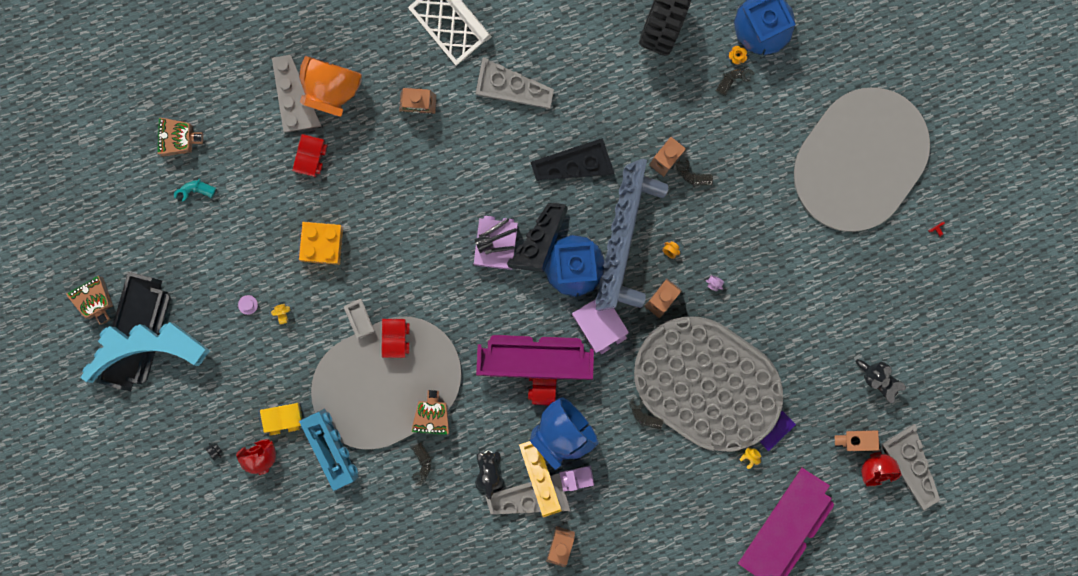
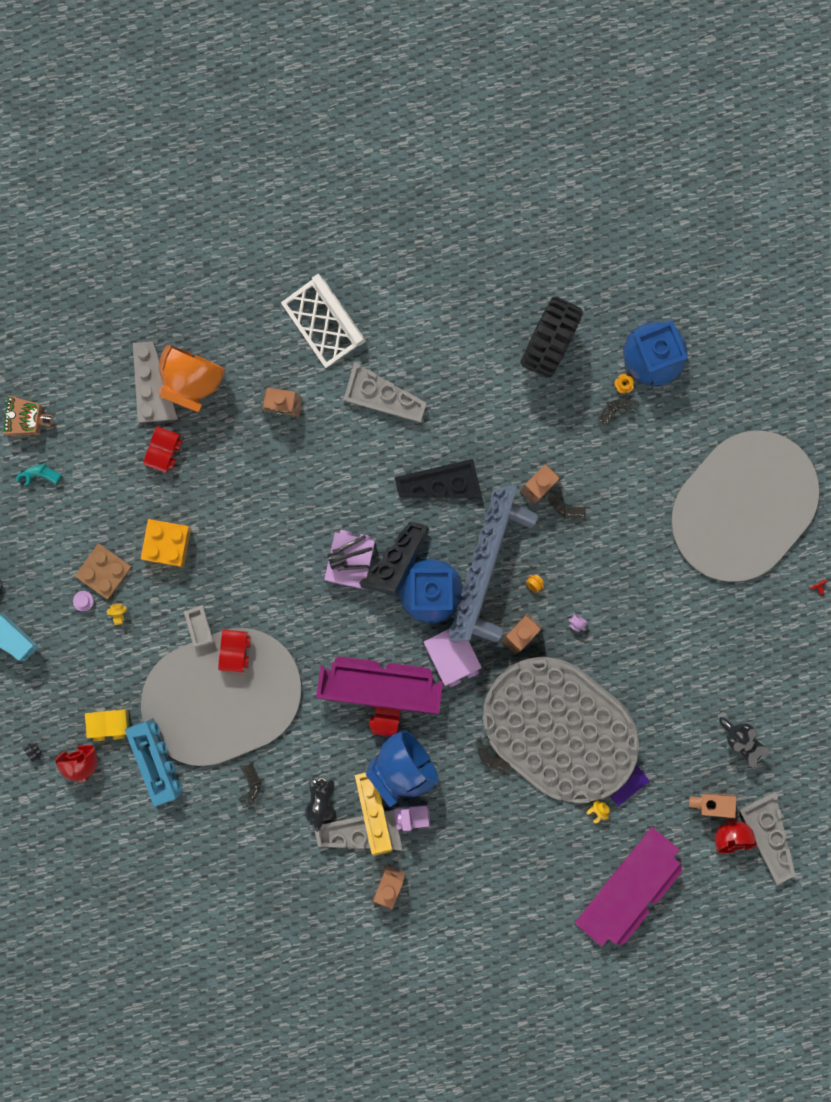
camera: 10 degrees right, 0 degrees up
(264, 275) = (103, 571): none -> medium nougat plate
(431, 415) = (265, 736): torso -> none

